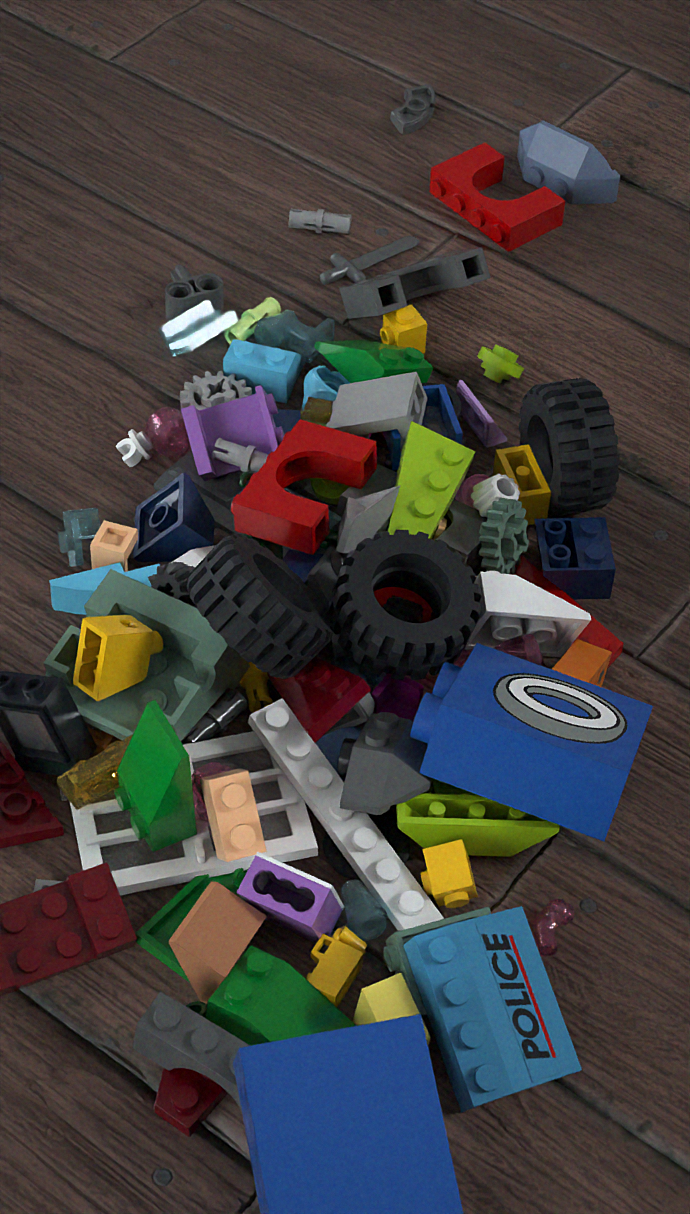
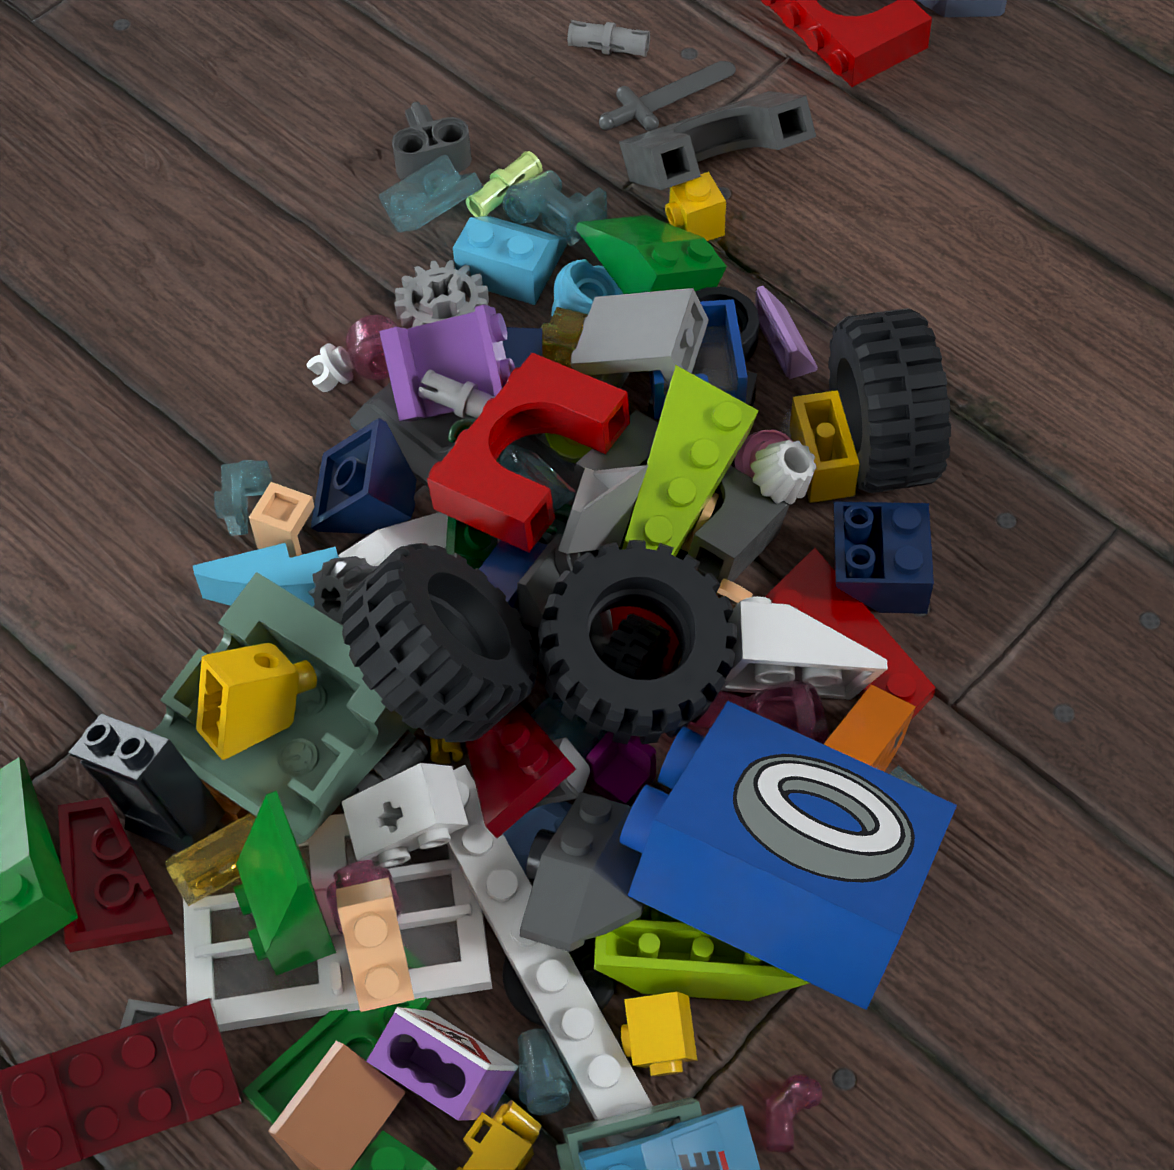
camera: 10 degrees right, 10 degrees up
(243, 729) = (405, 814): none -> white brick
(499, 363) = (818, 258): lime plate -> none
(503, 536) = (787, 531): sand green gear -> none

